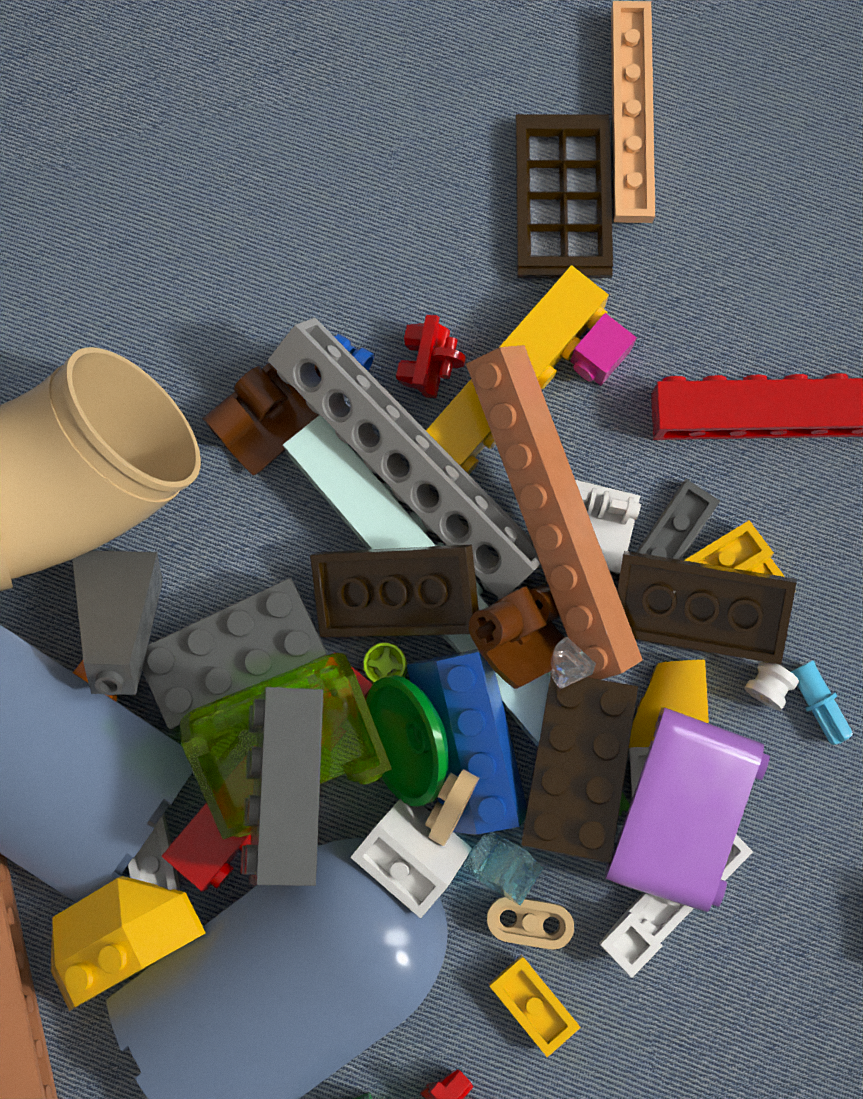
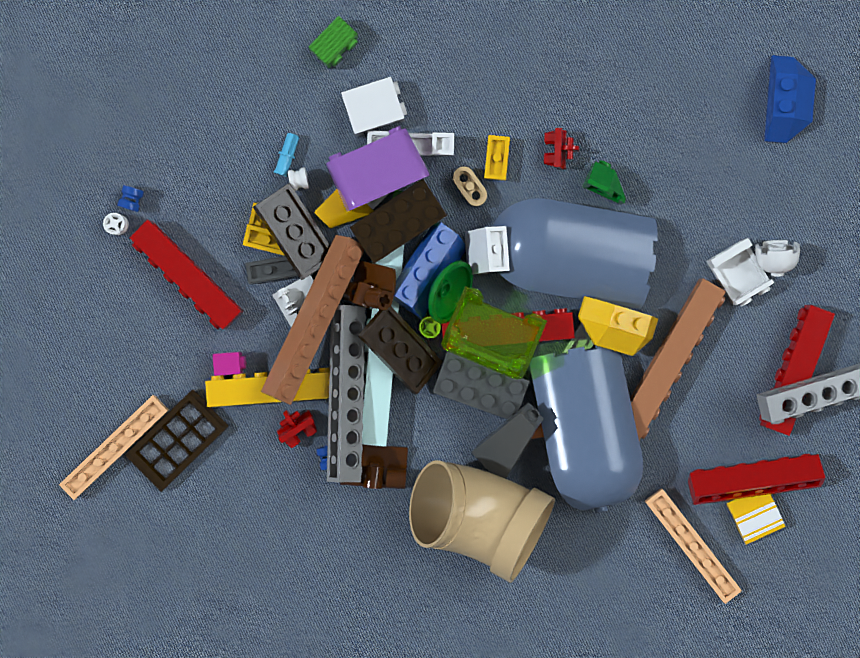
camera: 135 degrees left, 10 degrees up
(285, 787) = (508, 315): dark grey brick -> none
(456, 795) = (464, 251): tan plate -> none
(503, 867) = (460, 214): clear light blue brick -> none
(570, 663) = (365, 259): clear tile -> none
(782, 897) = (374, 105): none -> white panel

